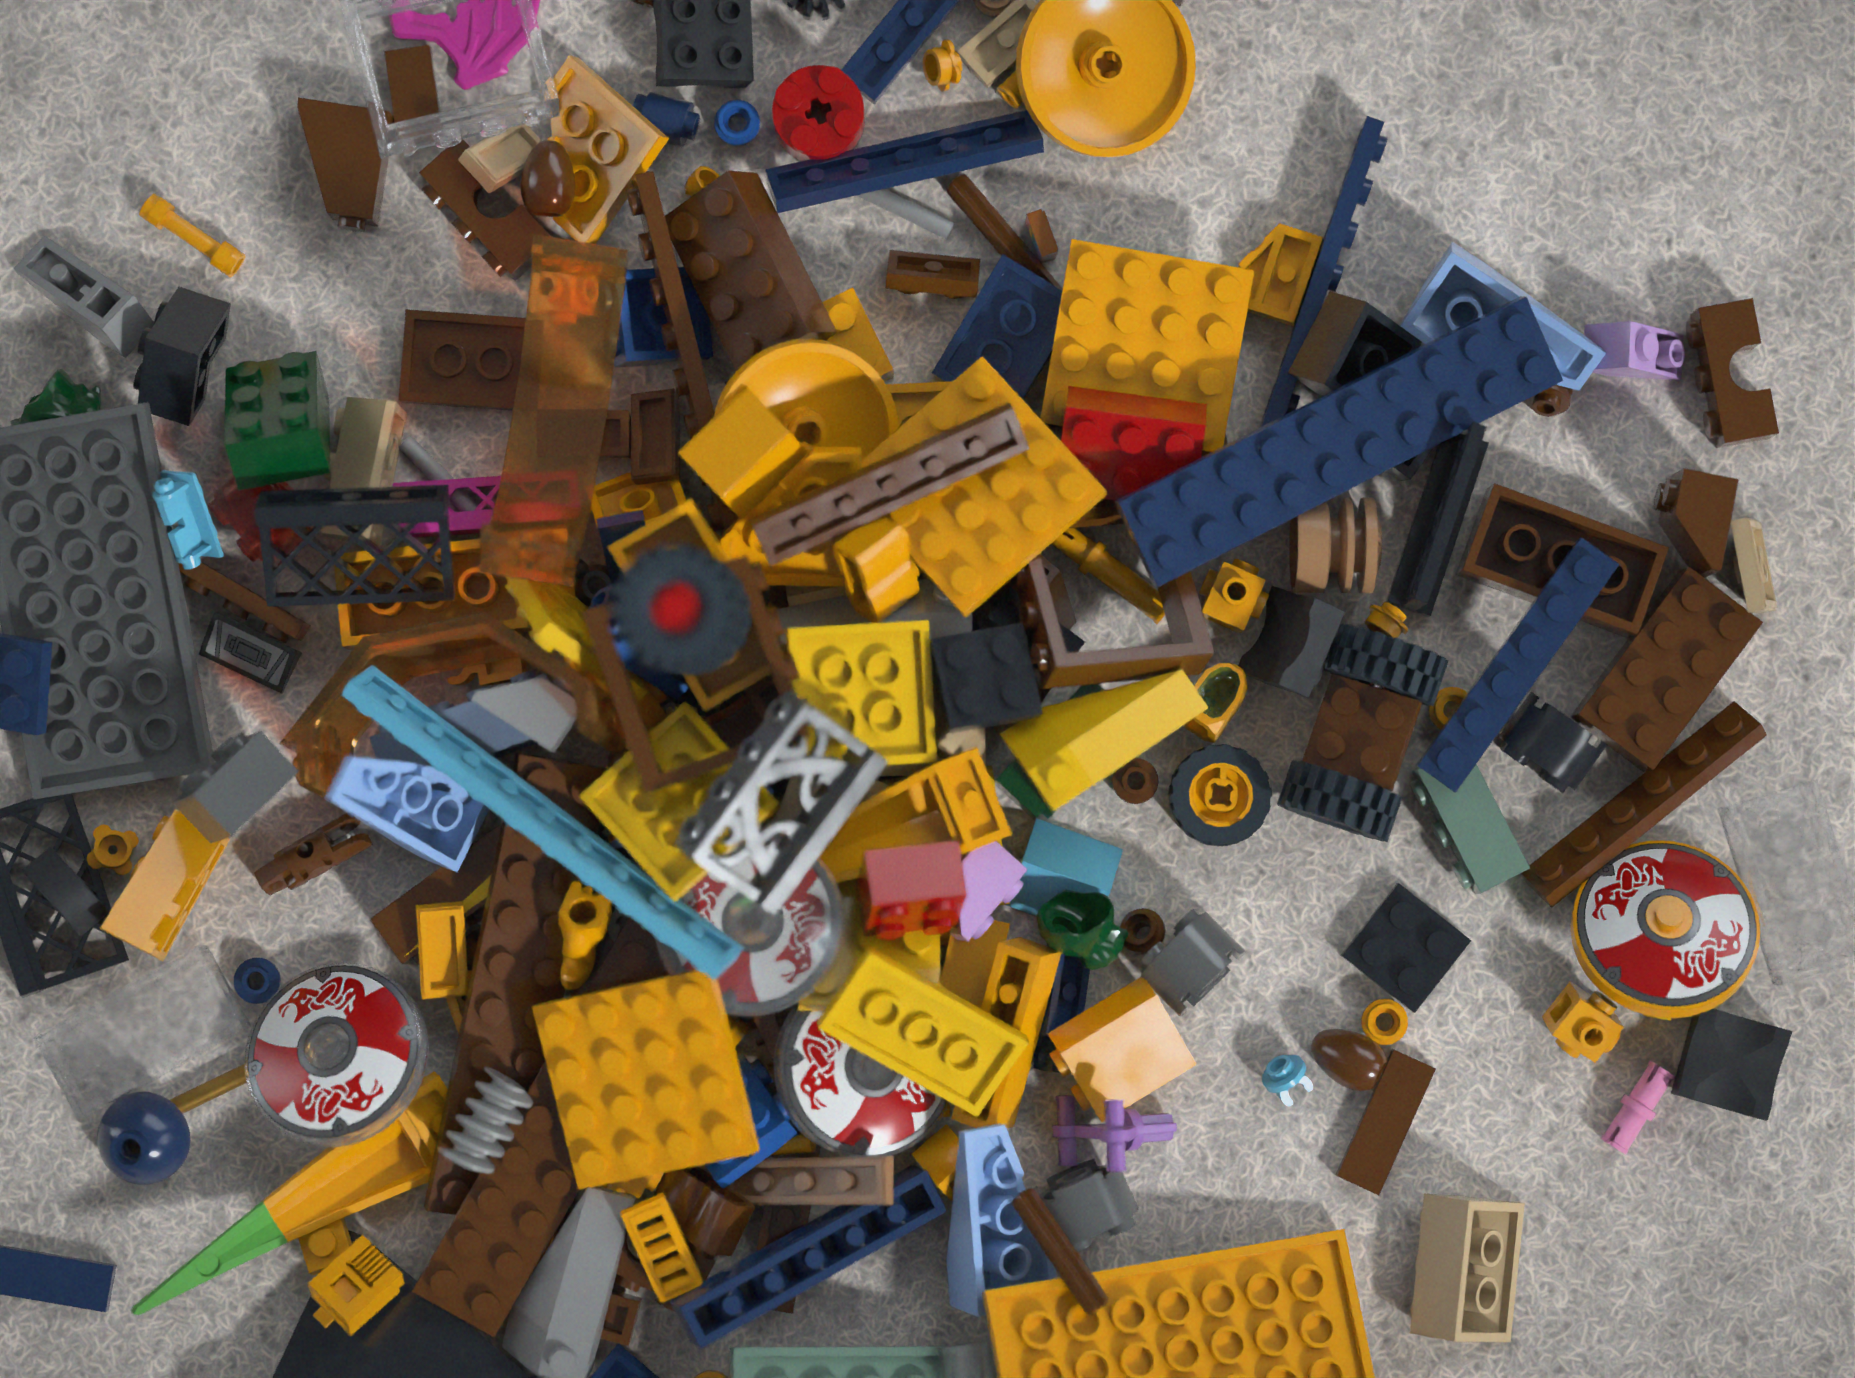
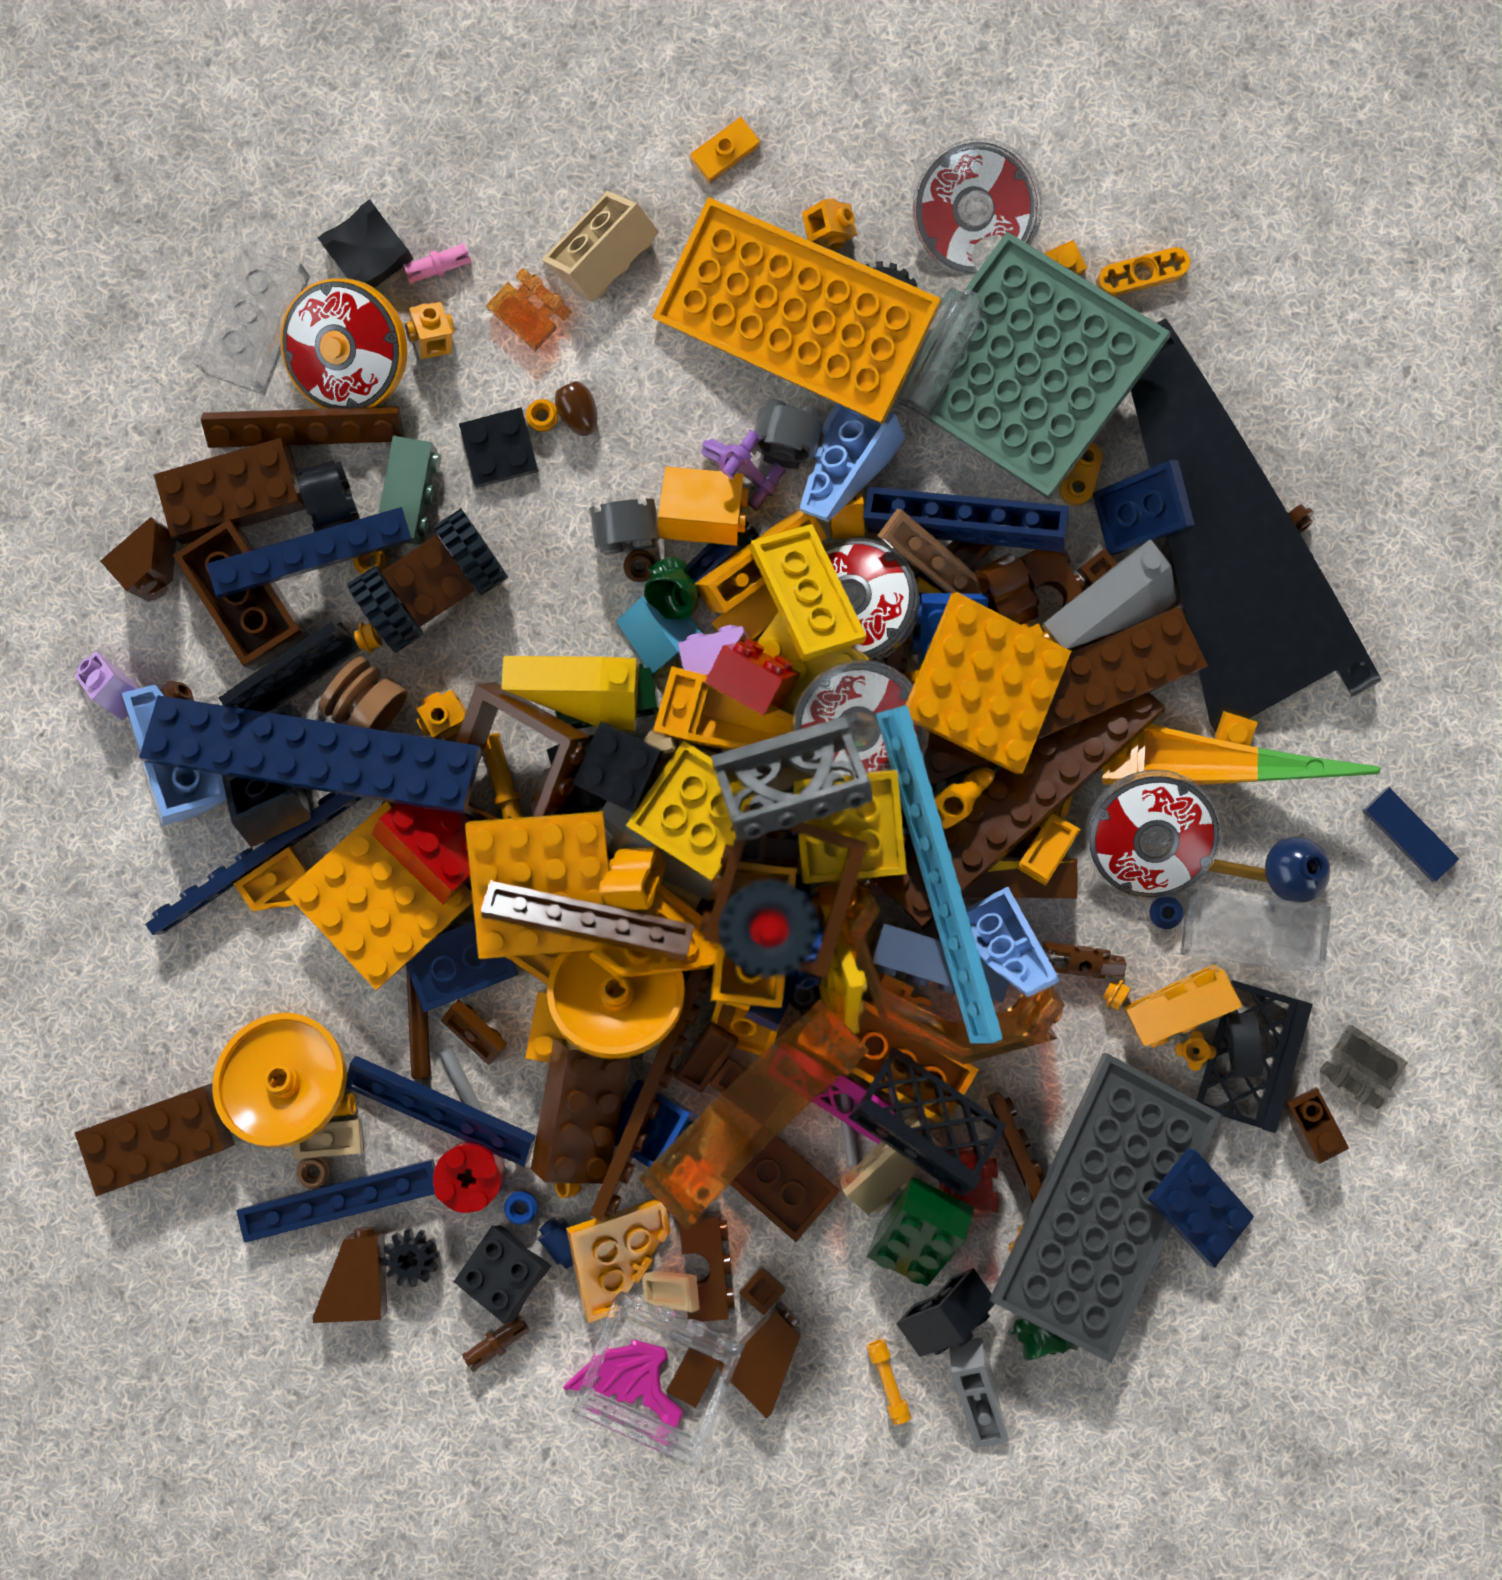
camera: 135 degrees left, 0 degrees up
(182, 501) = (1011, 1227): medium azure hinge -> none
(235, 786) = (1102, 1032): dark grey brick -> none
(247, 846) = (1116, 994): none -> light orange plate
(249, 652) = (1033, 1107): slope -> none
(355, 1286) = (1238, 693): light orange piece -> none
(404, 230) = (762, 1290): none -> reddish brown plate
(487, 1123) = (1095, 726): light grey piece -> none
(534, 707) = (894, 945): light grey slope -> none
(548, 180) = (656, 1256): reddish brown animal -> none
(672, 1275) = (1051, 563): light orange slope -> none
(743, 452) = (660, 1005): light orange slope -> none
(942, 65) = (375, 1151): light orange plate -> none
(1041, 235) = (394, 1007): dark orange tile -> none
(1060, 1251) = (821, 413): reddish brown axle -> none
(1130, 795) = (578, 642): reddish brown plate -> none
(1219, 795) = (537, 609): black wheel -> none
(1223, 691) = (489, 664): rock -> none
(1284, 1073) = (620, 426): medium azure plate -> none
(1293, 642) = (428, 662): black brick -> none
(1385, 1122) = (584, 359): reddish brown tile -> none
(1496, 1119) = (524, 318): none -> clear orange plate
(1733, 412) = (56, 657): reddish brown arch -> none
(1752, 566) = (136, 509): tan plate -> none

